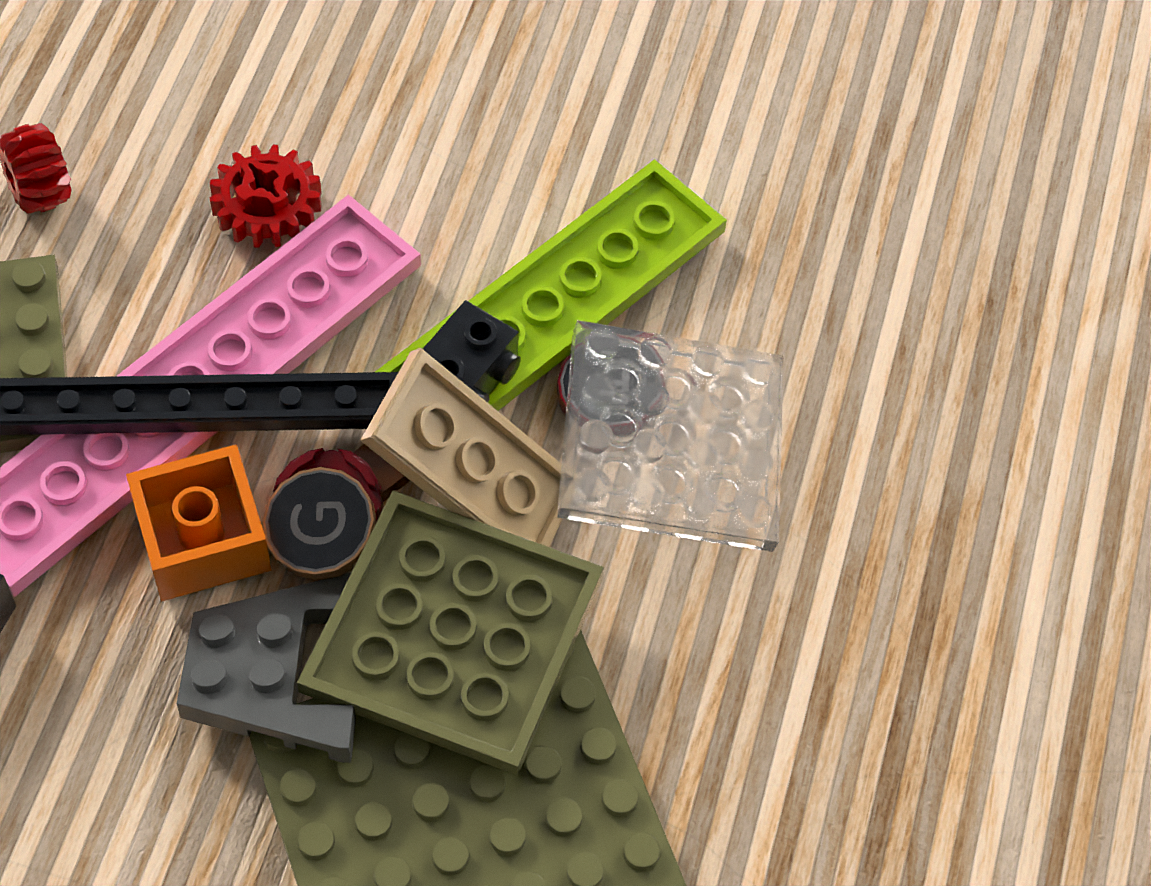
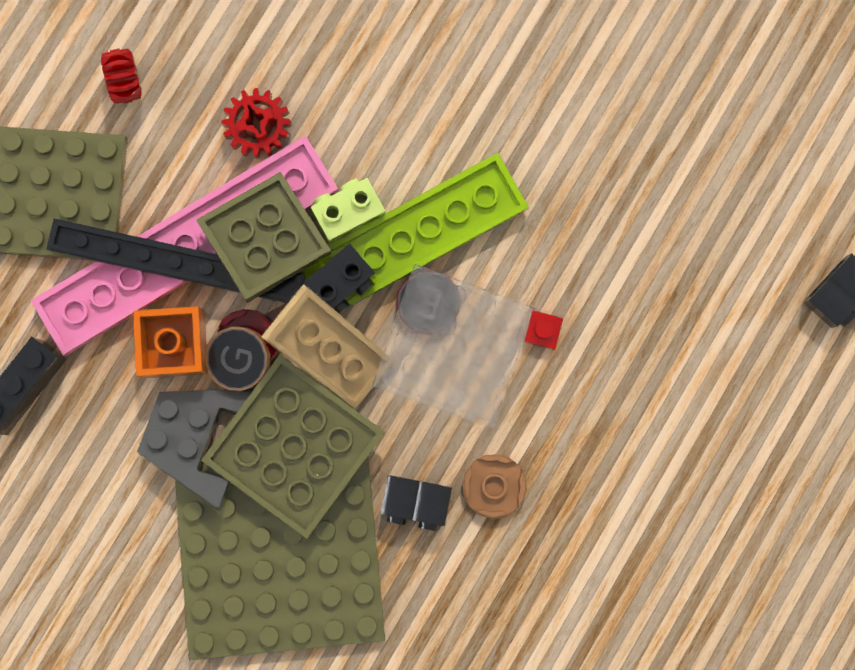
camera: 20 degrees right, 25 degrees up
(321, 328) = (263, 237): none -> olive plate
(440, 278) = (346, 210): none -> yellowish green brick
(686, 680) = (415, 501): none -> black brick
(808, 388) = (543, 330): none -> red plate
(808, 634) = (494, 486): none -> medium nougat tile

